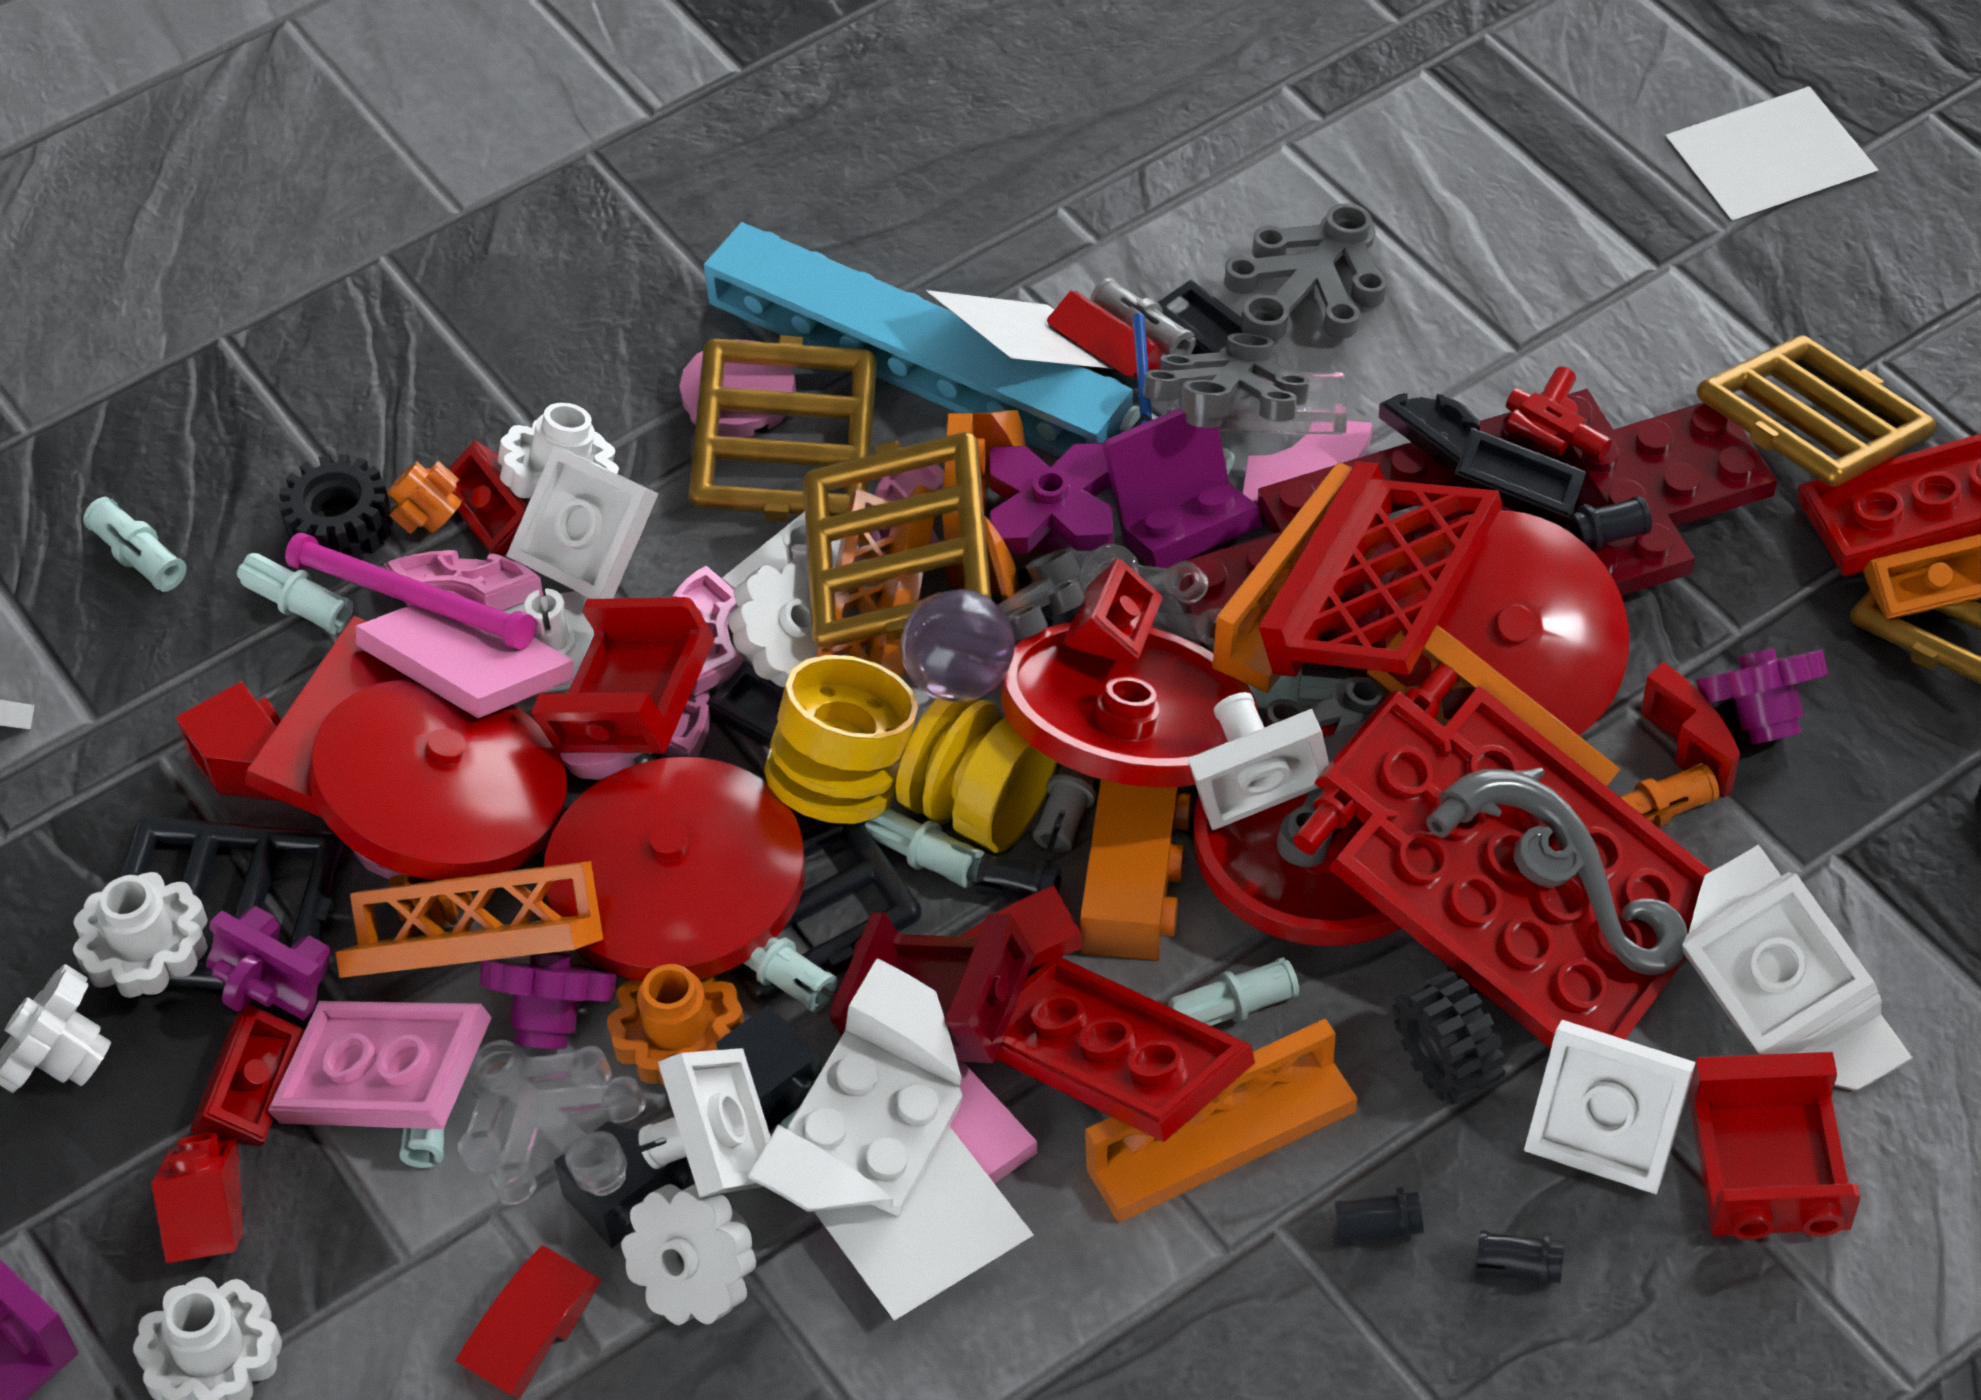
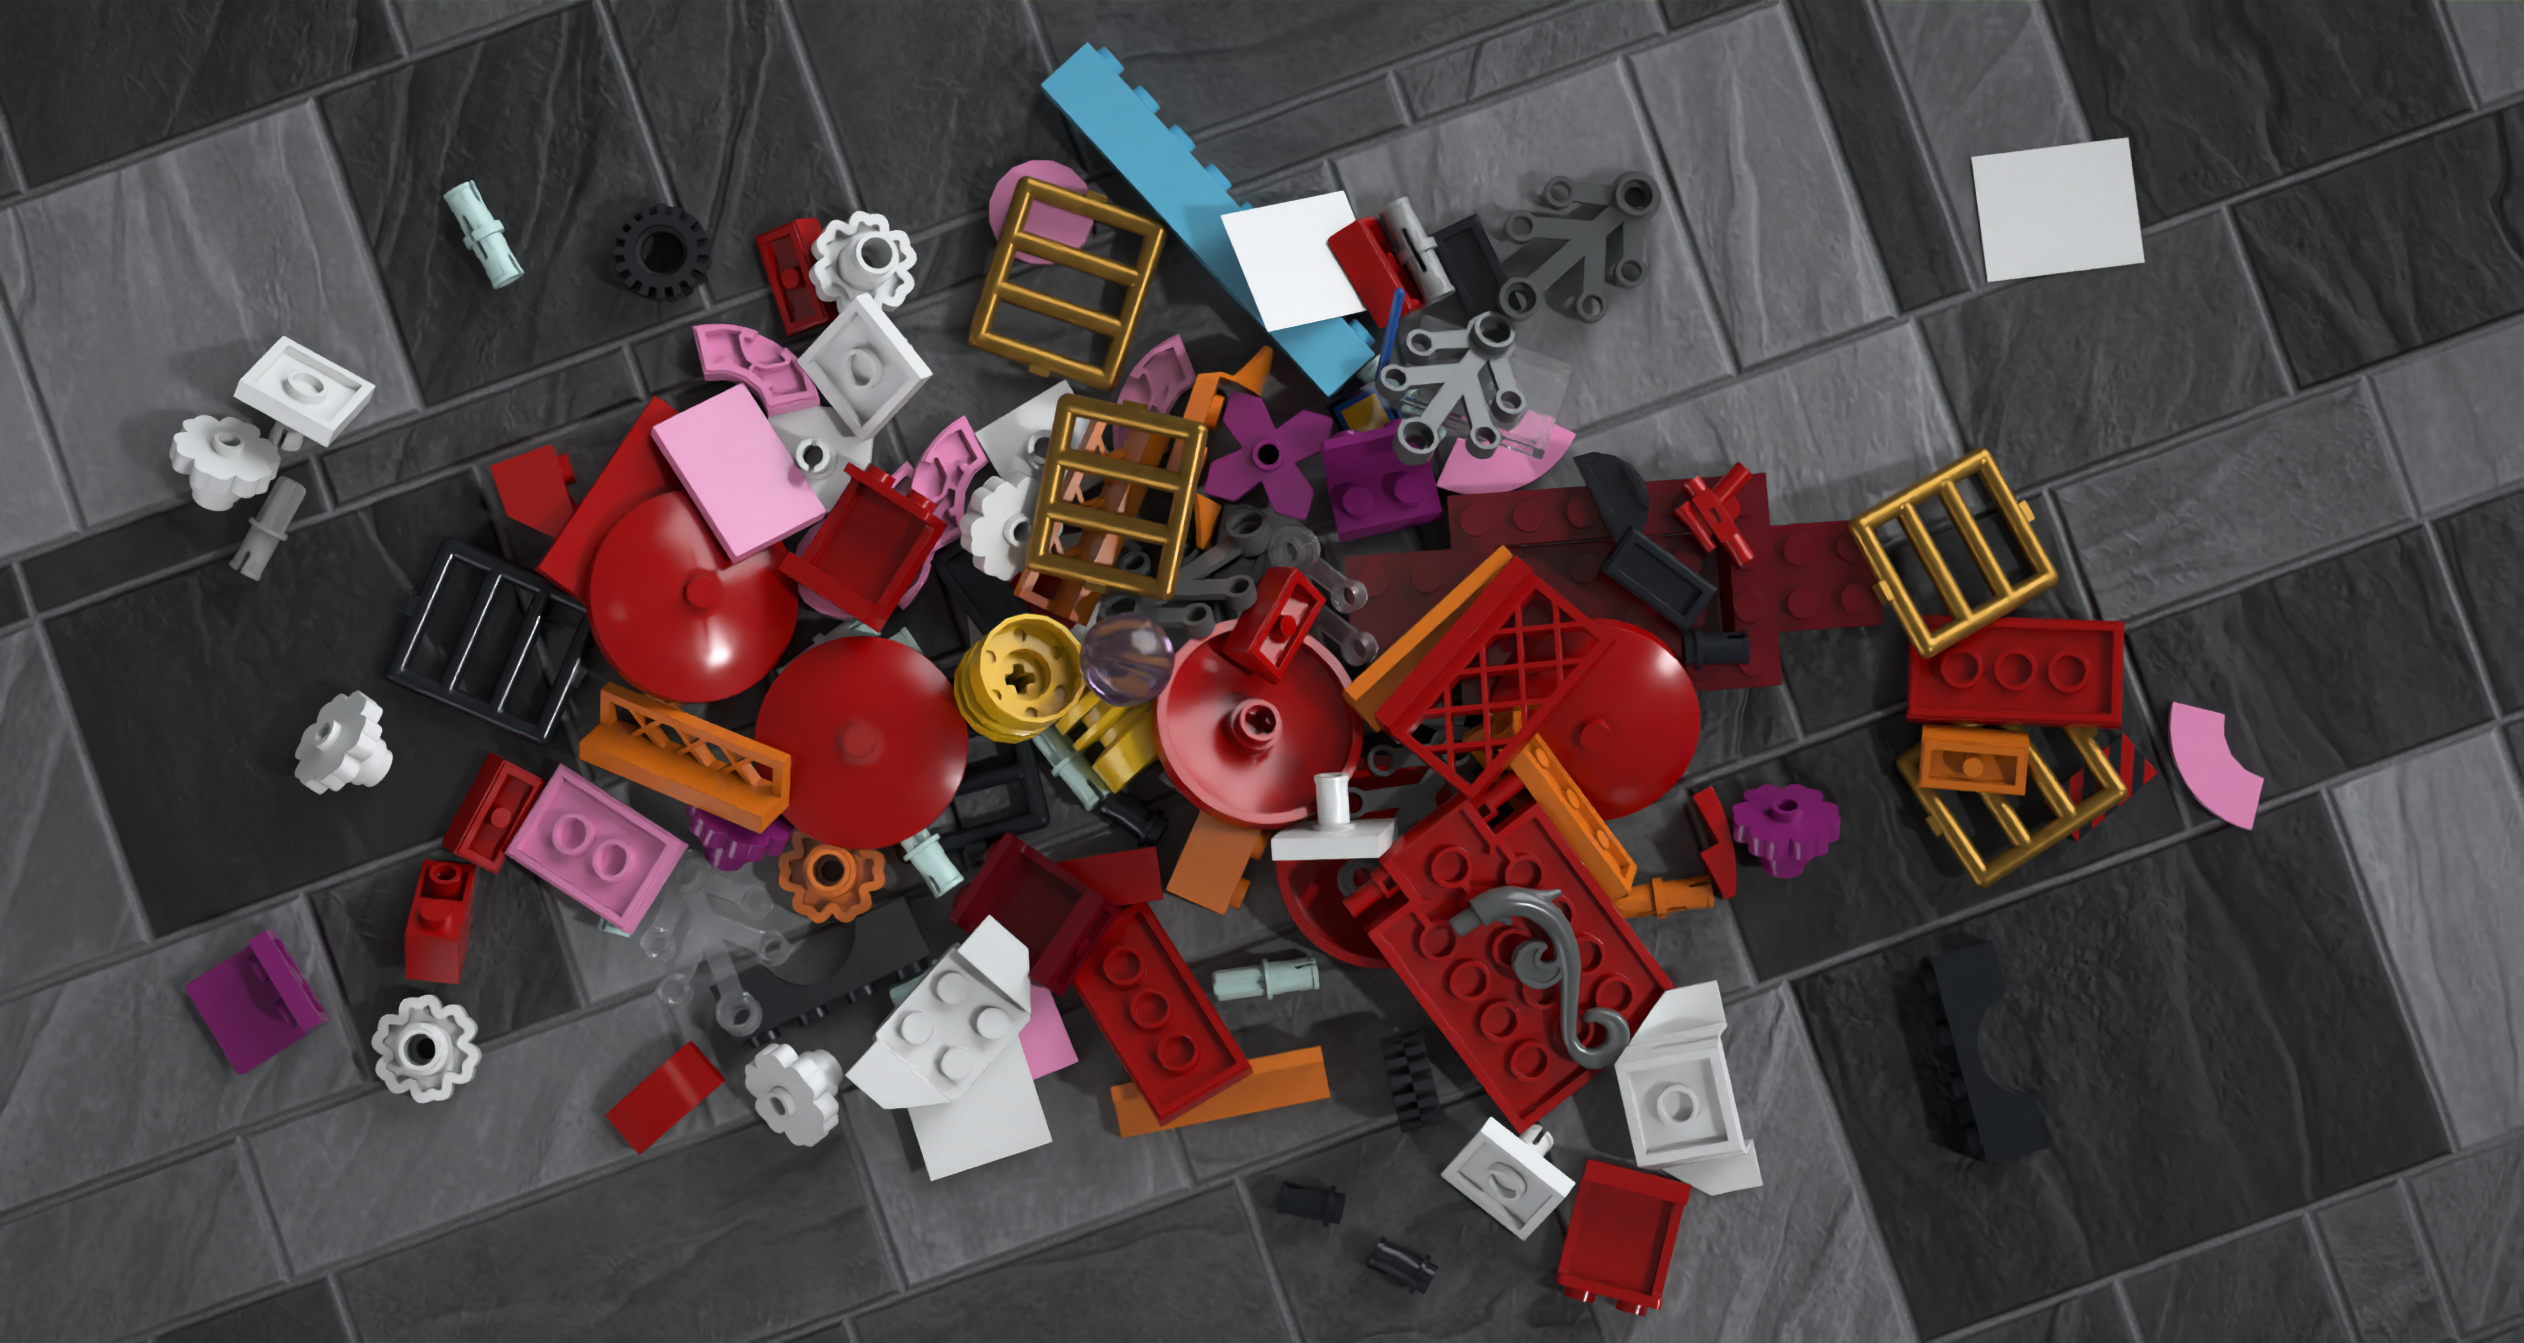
camera: 15 degrees right, 35 degrees up
(140, 934) = (405, 660): white plant -> none
(261, 968) = (540, 750): magenta hips -> none
(295, 593) = (610, 335): light aqua axle -> none
(424, 497) = (739, 270): orange gear -> none
(515, 628) = (783, 472): dark pink bar -> none
(713, 1122) = (833, 1017): white tile -> none

